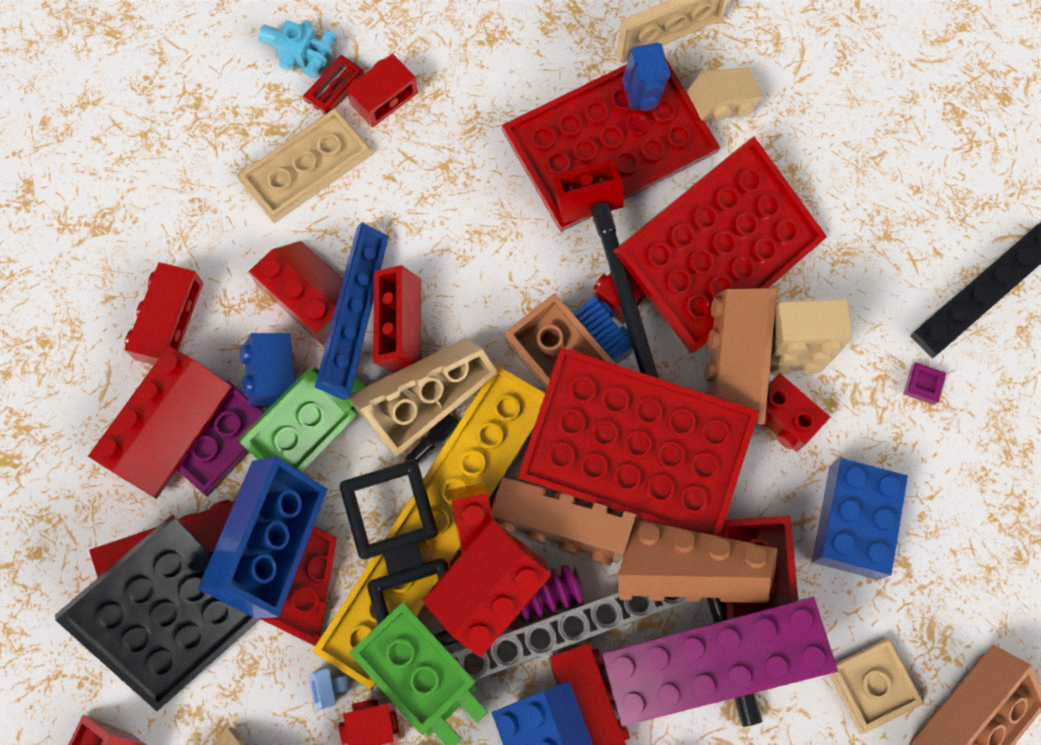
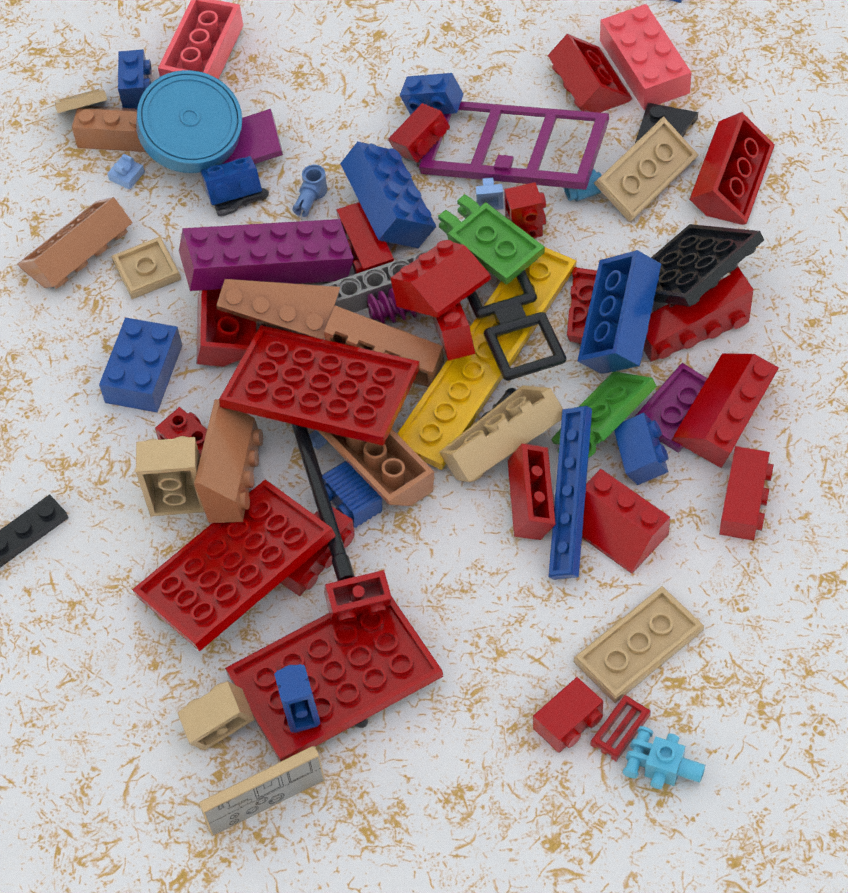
camera: 175 degrees left, 15 degrees down
(324, 688) = (562, 240): light blue tile -> none
(924, 383) = (64, 475): magenta tile -> none

